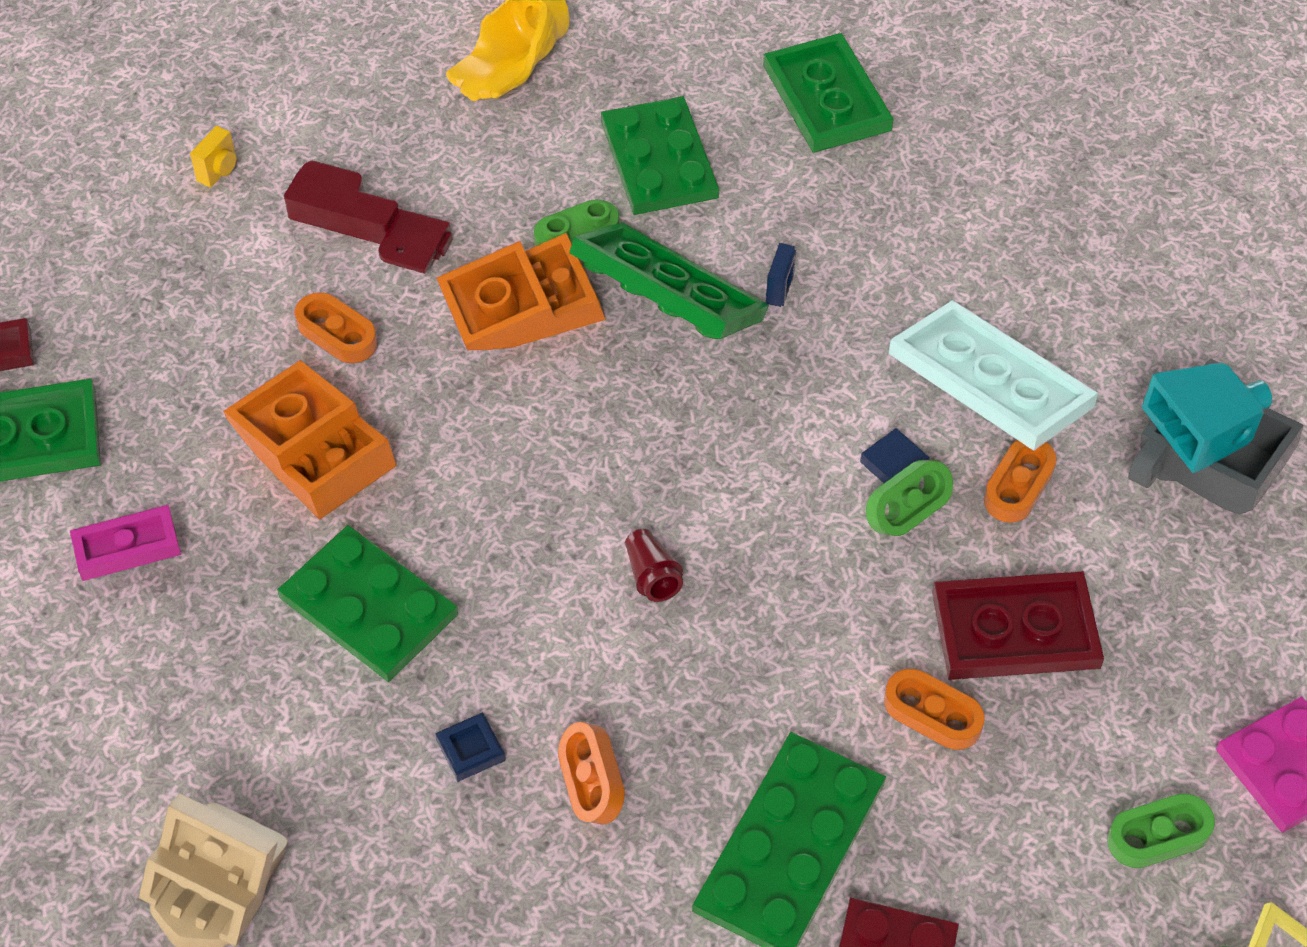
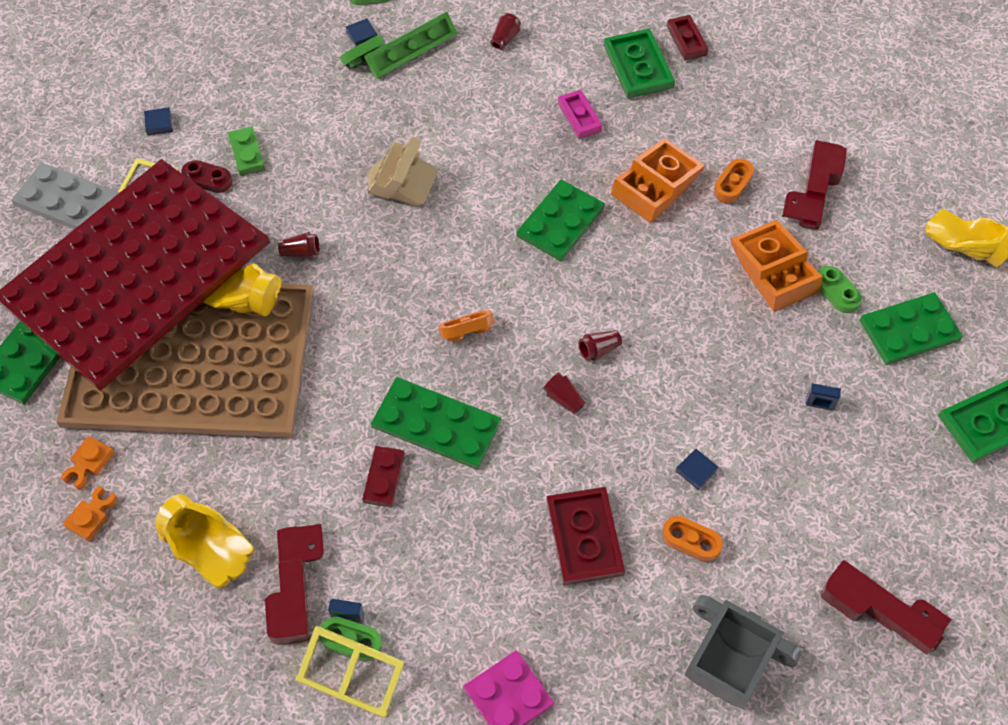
camera: 85 degrees right, 5 degrees up
(213, 156) = (840, 107): yellow plate -> none
(470, 747) = (481, 273): dark blue tile -> none
(669, 280) = (800, 334): green plate -> none
(746, 629) = (564, 393): none -> dark red cone
(906, 501) = (666, 476): bright green plate -> none
(936, 707) = (522, 491): orange plate -> none
(993, 374) = (766, 519): light aqua plate -> none
(1109, 288) = (857, 594): none -> dark red piece
(1157, 830) = (455, 613): bright green plate -> none
(1205, 411) = (740, 633): teal torso -> none

